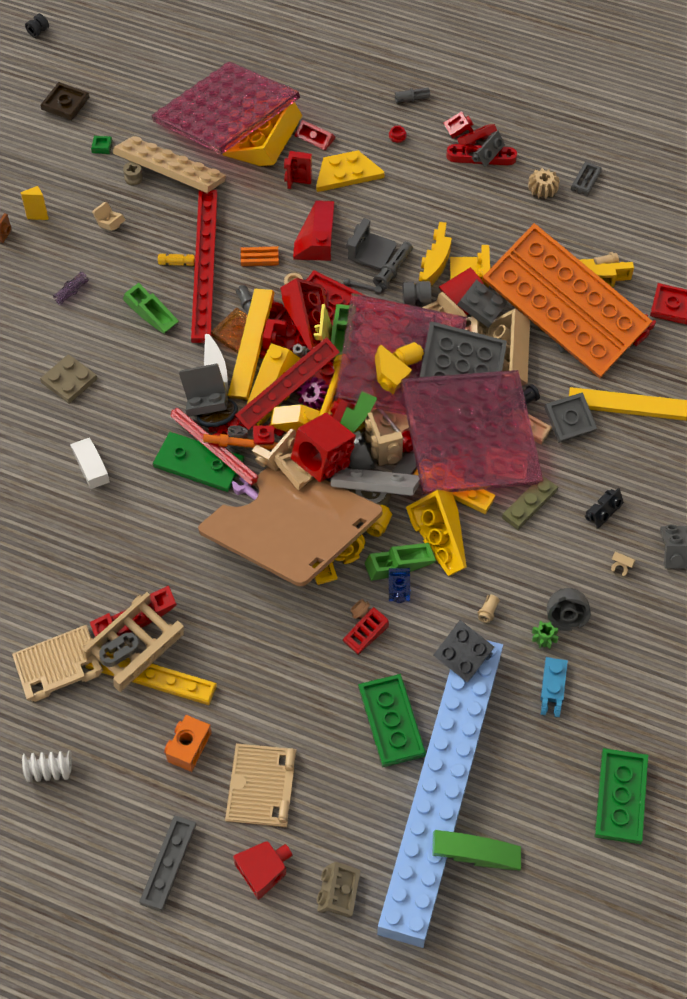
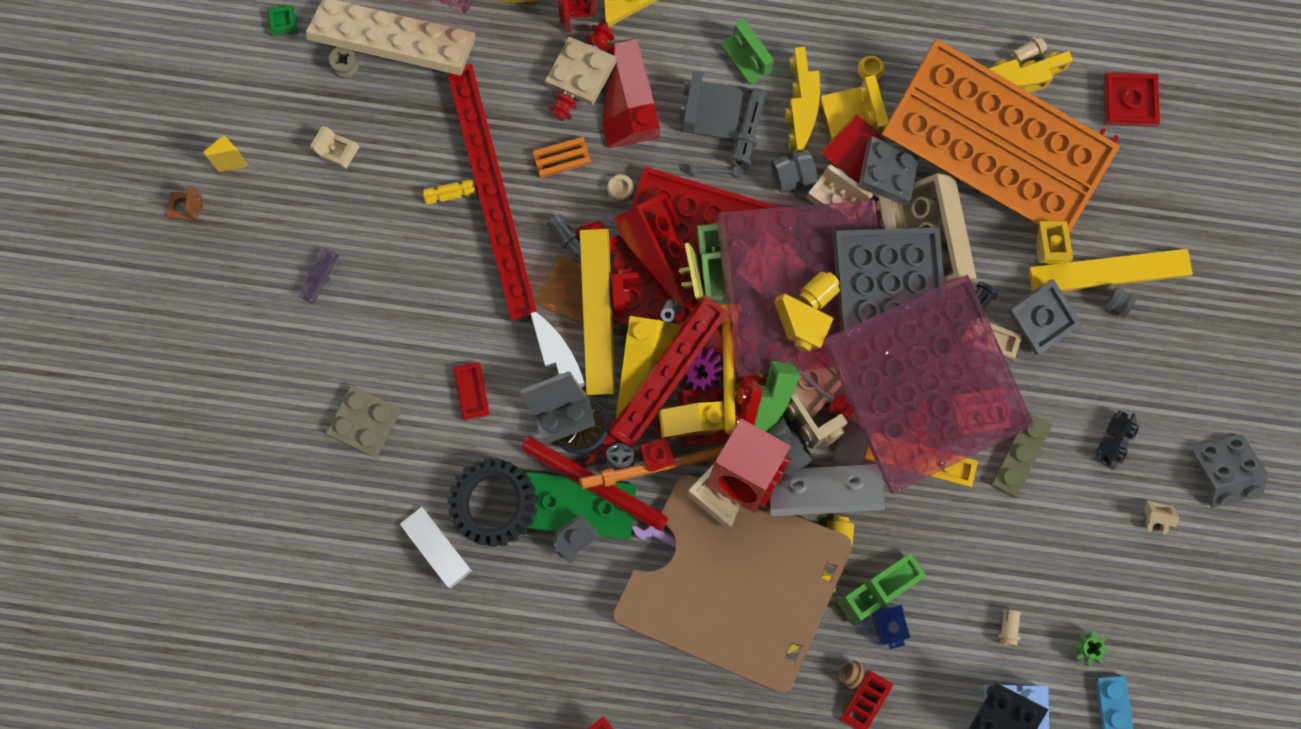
camera: 20 degrees left, 20 degrees up
(147, 458) = (461, 496): none -> black tyre
(149, 377) = (471, 391): none -> red tile
(150, 308) = (440, 284): bright green slope -> none
(188, 476) = (574, 537): none -> dark grey bracket
(268, 458) = (695, 460): tan bracket -> none
(288, 209) = (581, 71): none -> tan plate
(407, 220) = (748, 53): none -> bright green bracket
(439, 525) = (922, 529): yellow wedge -> none
(493, 247) = (870, 66): none -> yellow plate
(568, 609) = (1109, 604): dark grey cylinder -> none
(588, 372) = (1053, 243): none -> yellow slope
(630, 420) = (1121, 301): none -> dark grey wheel

